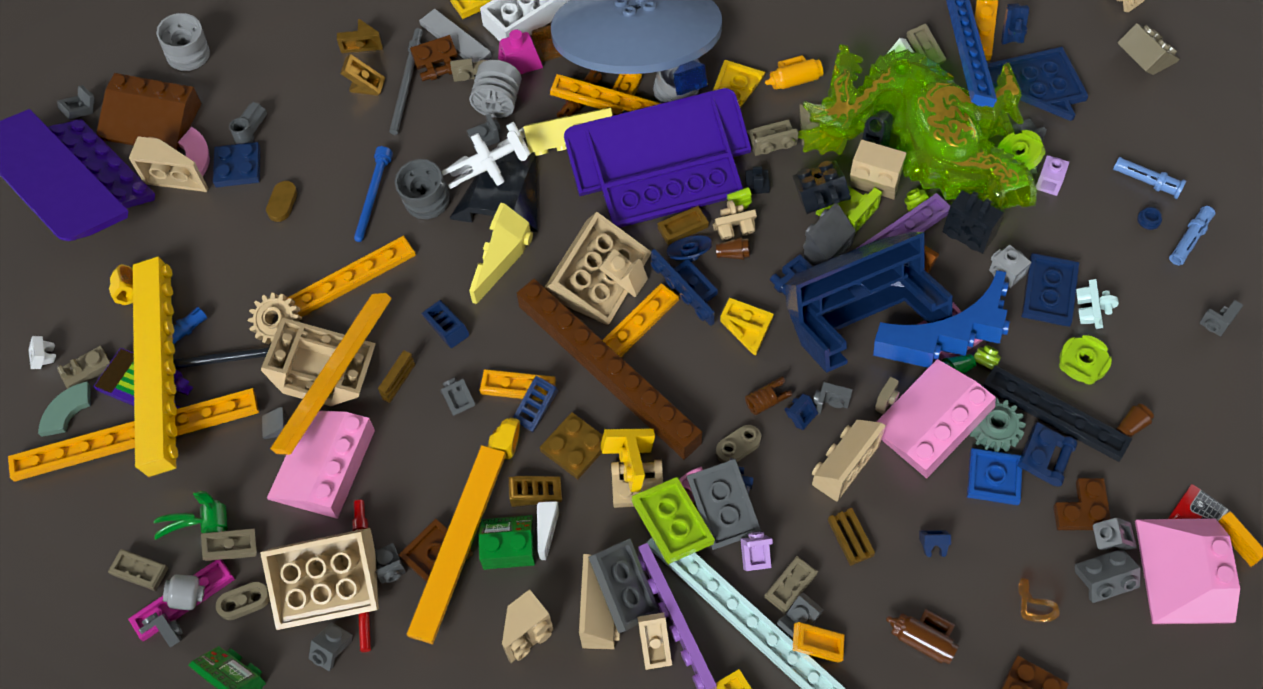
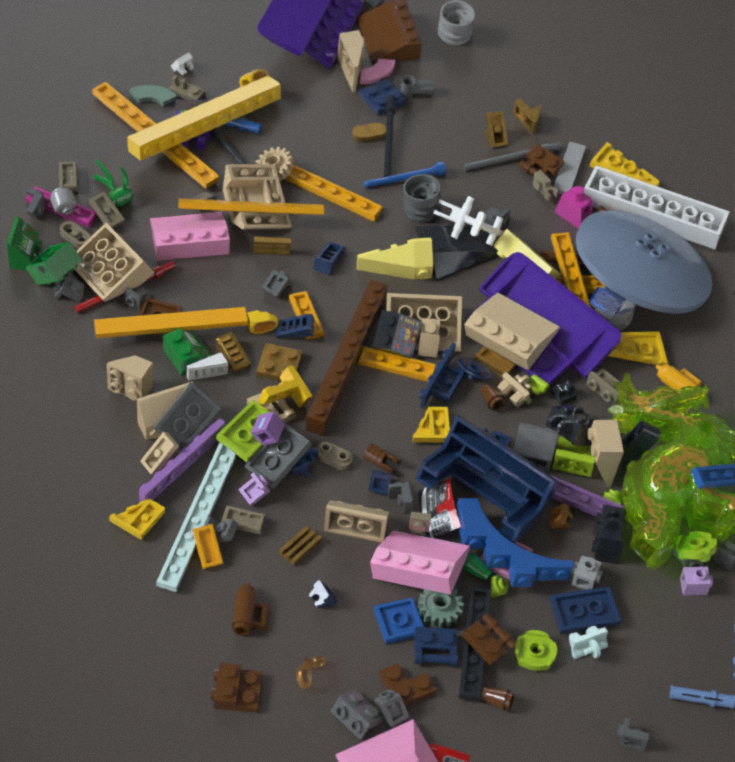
camera: 55 degrees right, 10 degrees down
(270, 164) = (390, 111): none -> black bar
(285, 648) = (53, 263): none -> green brick
(495, 88) = (533, 204): light grey wheel -> none
(608, 302) = (397, 334): none -> black slope
(662, 187) = (510, 330): none -> tan slope
(692, 496) = (268, 428): none -> medium lavender brick
(866, 368) = (441, 506): none -> sticker
(1067, 402) = (483, 641): none -> reddish brown plate
(1149, 218) = (699, 663): dark blue plate -> none

